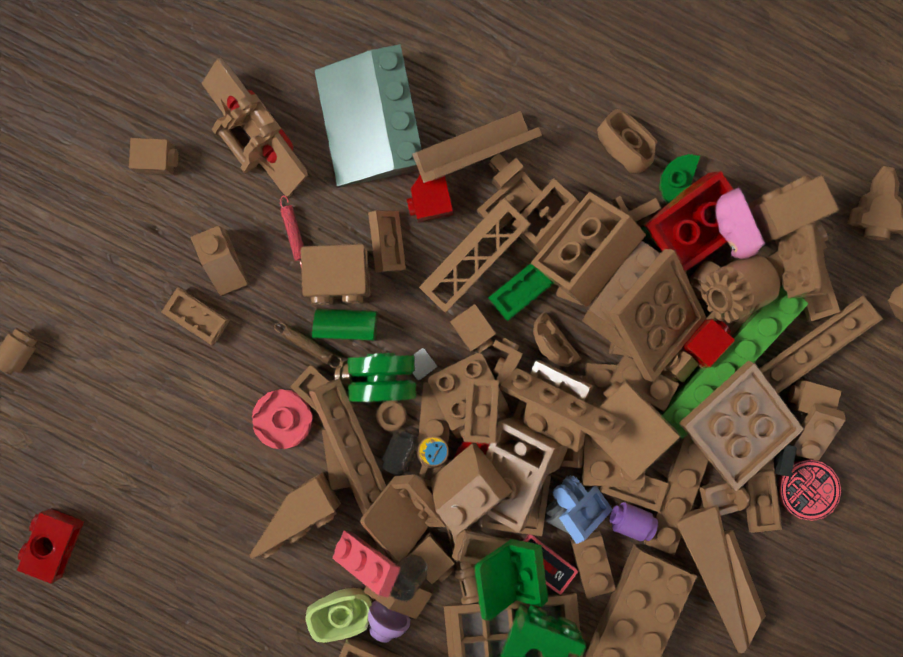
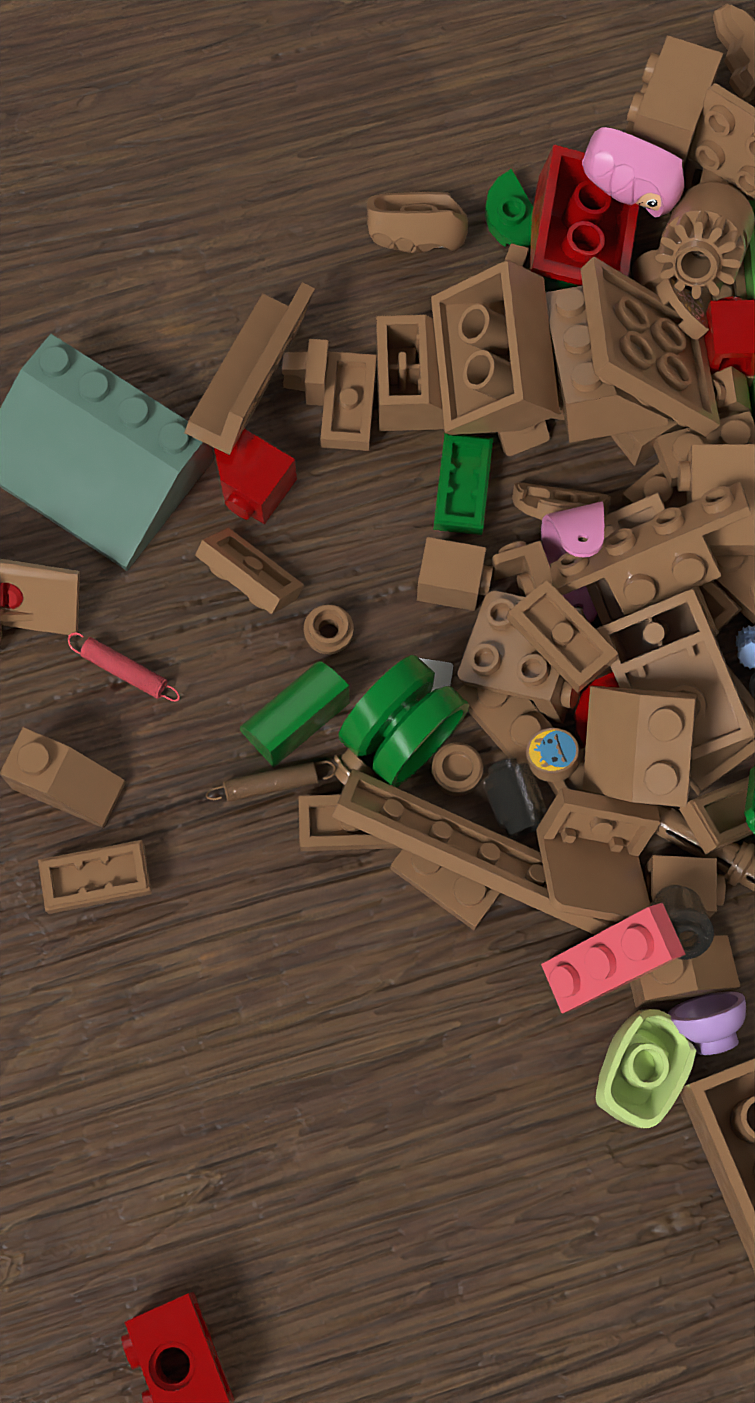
camera: 45 degrees left, 15 degrees down
(282, 419) = (327, 902): coral tile -> none
(302, 507) = (462, 973): medium nougat slope -> none
(335, 273) = (225, 652): medium nougat piece -> none
(390, 293) = (324, 616): none -> medium nougat plate
(470, 243) = (352, 491): medium nougat fence -> none
(539, 367) = (561, 535): none -> bright pink piece
(699, 309) = (688, 308): none -> medium nougat tile

